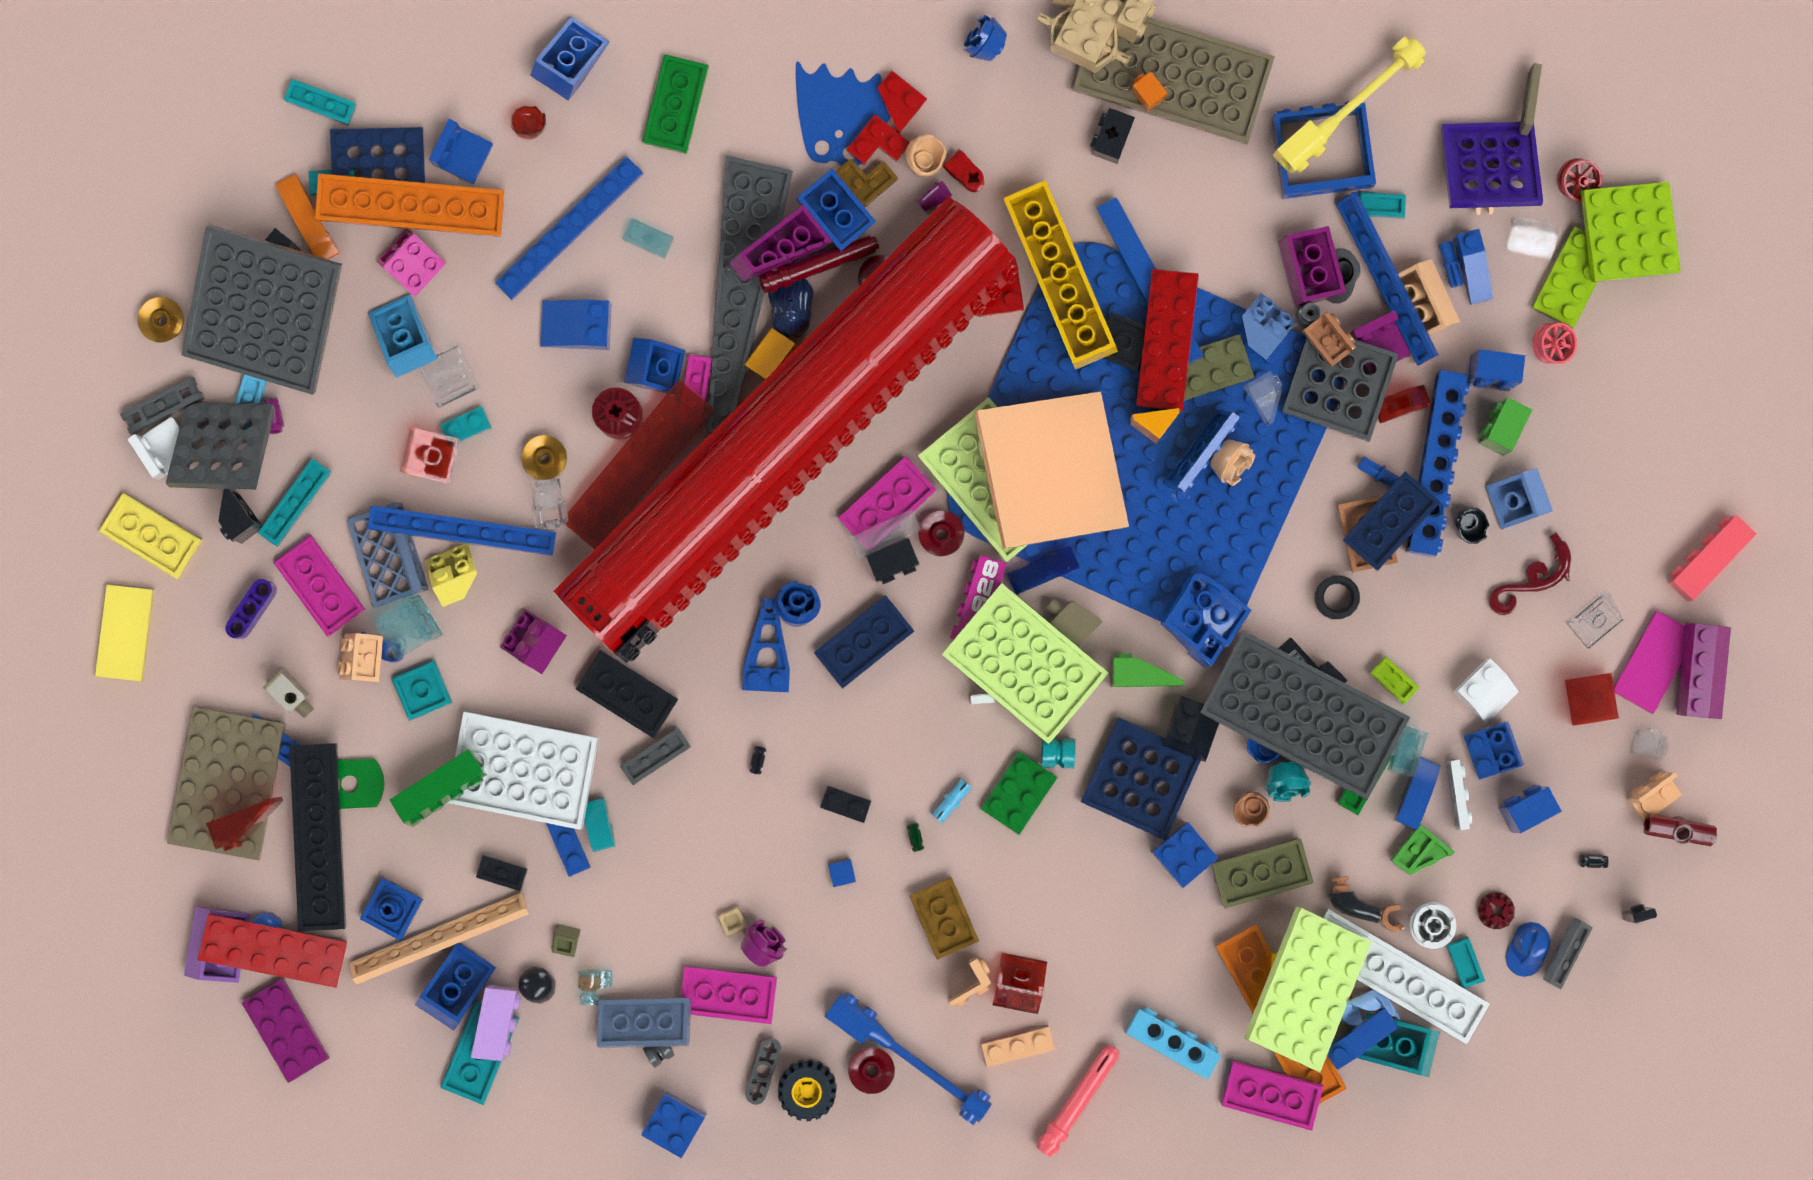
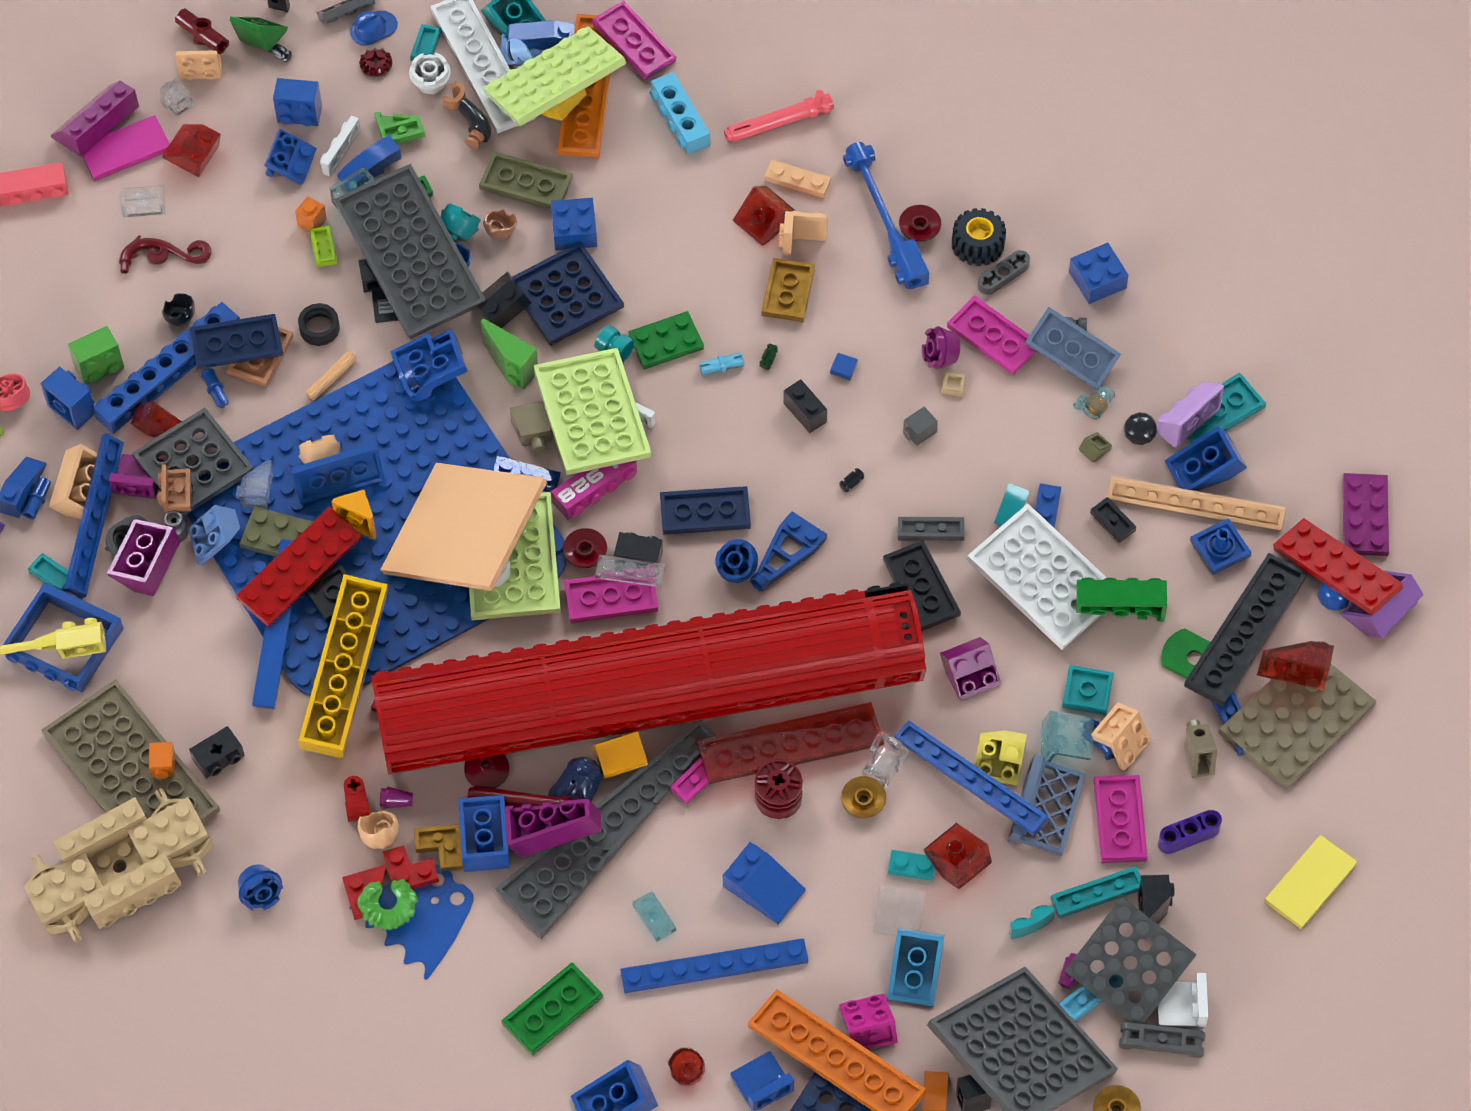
camera: 145 degrees left, 25 degrees down
(150, 535) = (1239, 944): light yellow tile -> none
(327, 444) = (1039, 917): none -> teal slope
(654, 365) = (722, 811): blue slope -> none
(732, 852) = (920, 426): none -> dark grey brick
(861, 86) = (387, 919): none -> bright green piece
(1288, 555) = (331, 375): none -> light nougat axle
(1428, 702) = (310, 214): none -> orange brick
(1486, 690) = (262, 202): white slope -> none
(1519, 498) = (127, 307): medium blue slope -> none
(1627, 868) = (258, 31): none -> green slope

